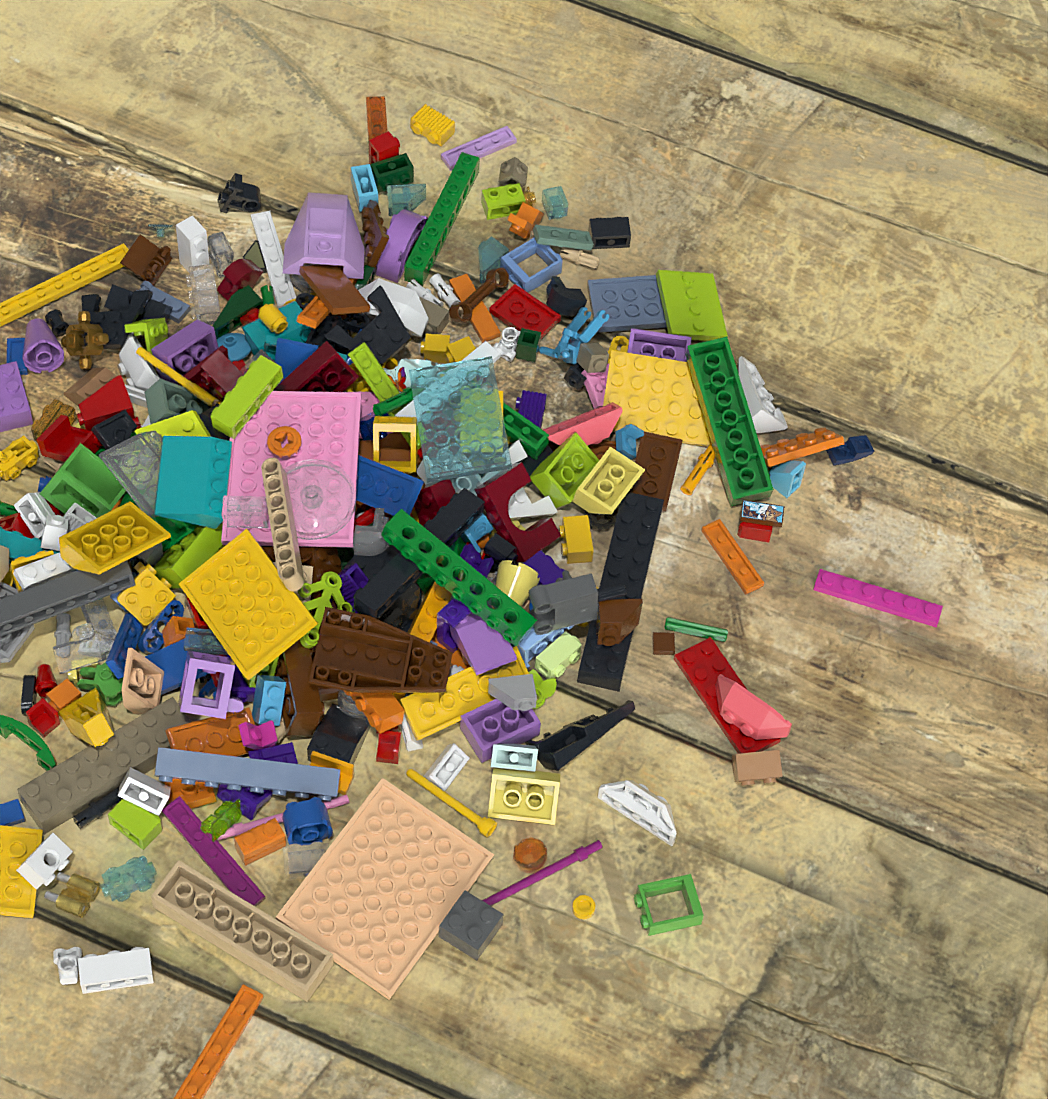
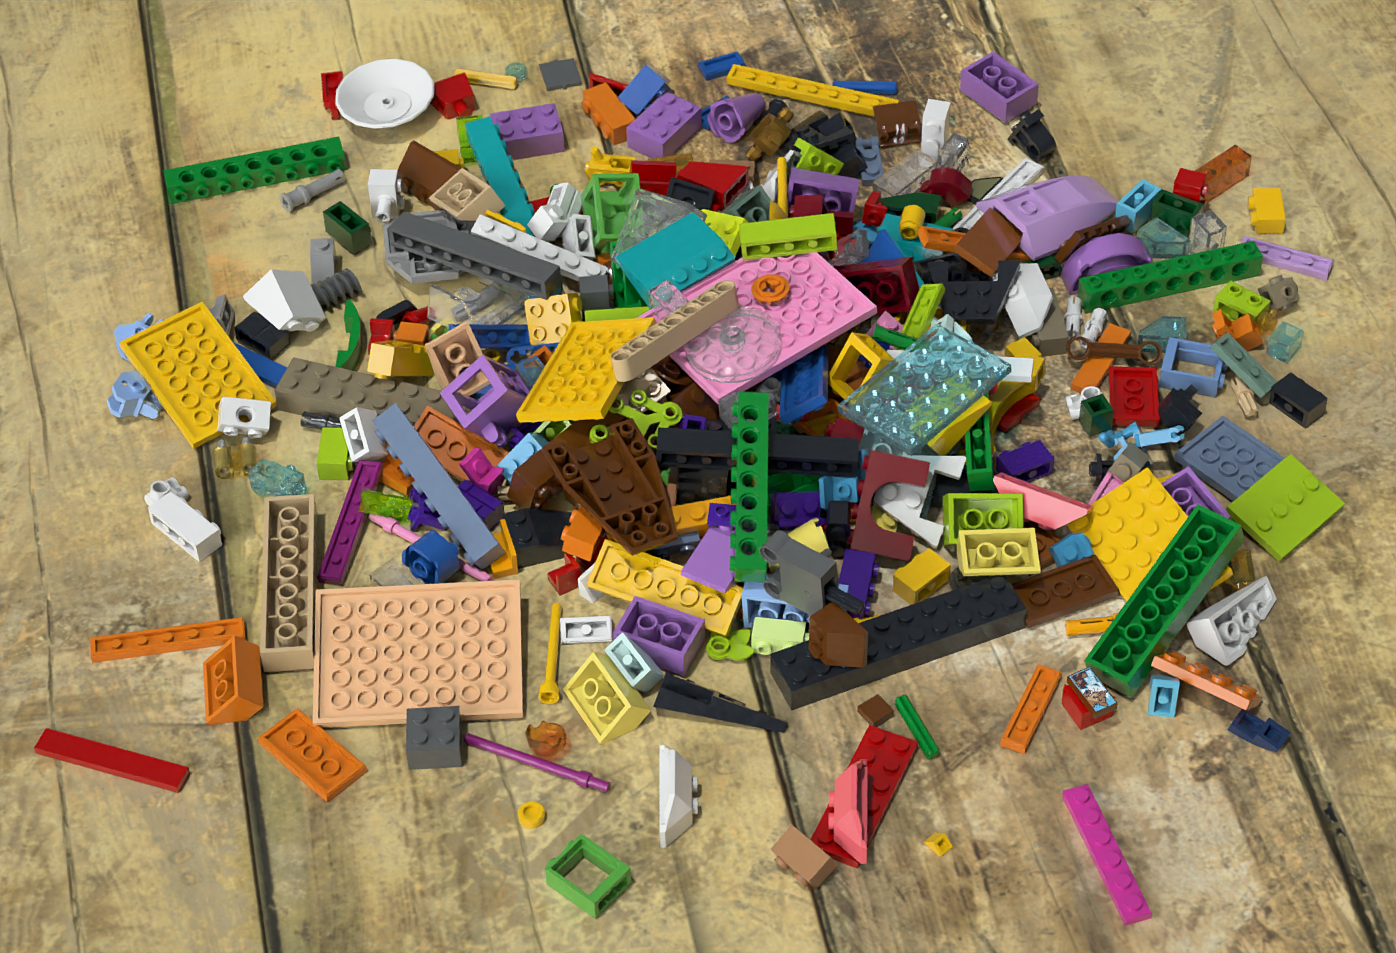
camera: 60 degrees right, 10 degrees down
(86, 252) = (870, 87): none -> blue axle
(111, 539) = (564, 246): yellow slope -> none
(173, 179) = (999, 87): none -> medium lavender brick
(229, 334) = (874, 210): none -> red bracket
(260, 841) = (385, 541): orange brick -> none
(304, 1030) = (233, 682): none -> orange slope
(413, 1016) = (312, 755): none -> orange tile
(432, 172) = (1206, 232): none -> clear brick
(514, 691) = (694, 614): light grey slope -> none
(796, 682) = (938, 843): none -> yellow piece

